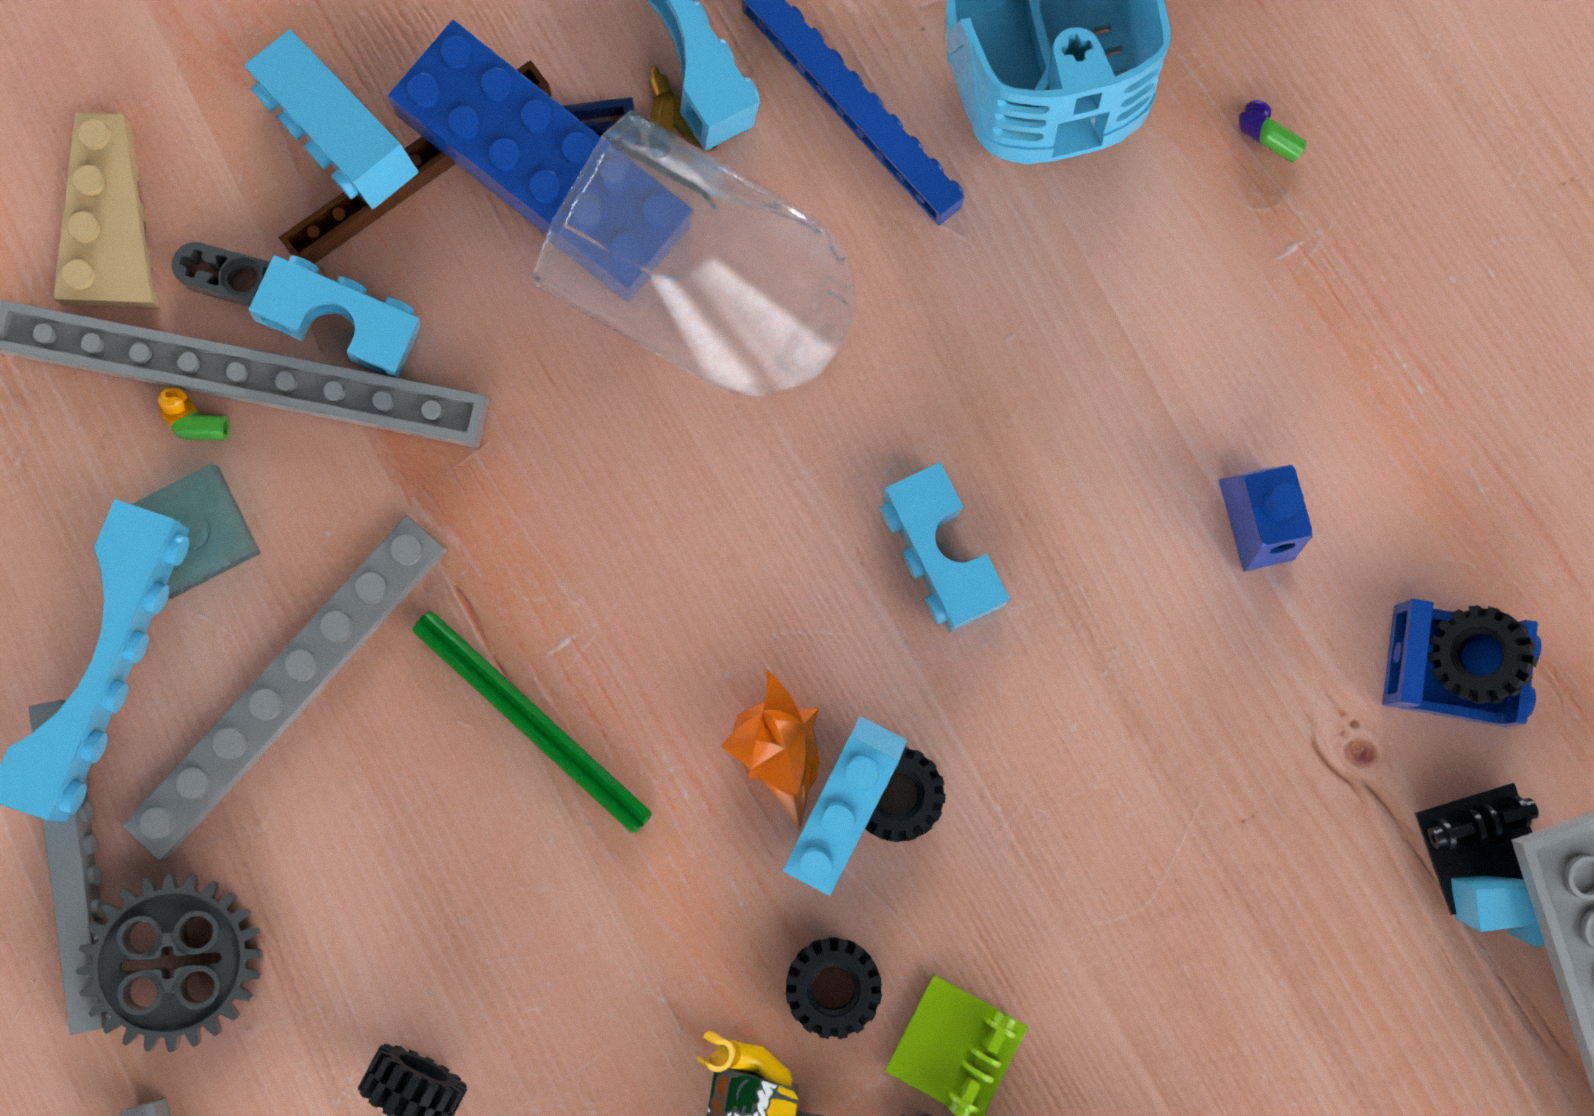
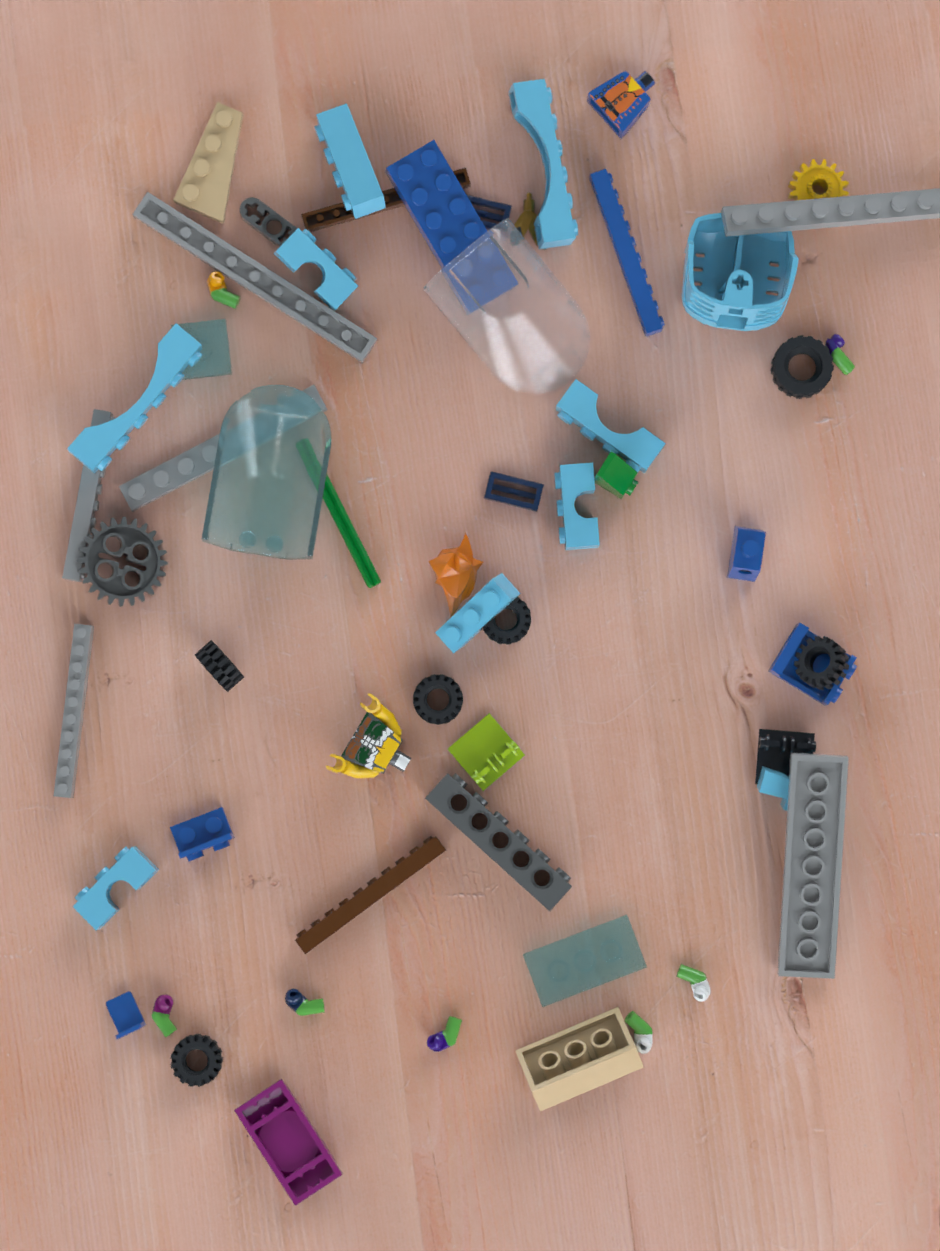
camera: 20 degrees right, 5 degrees up
(376, 705) = (269, 475): none -> clear light blue windscreen
(826, 585) = (504, 500): none -> dark blue tile
(989, 470) = (616, 476): none -> green slope
(1002, 412) = (636, 448): none -> medium azure arch
(1225, 136) = (812, 348): none -> black tyre

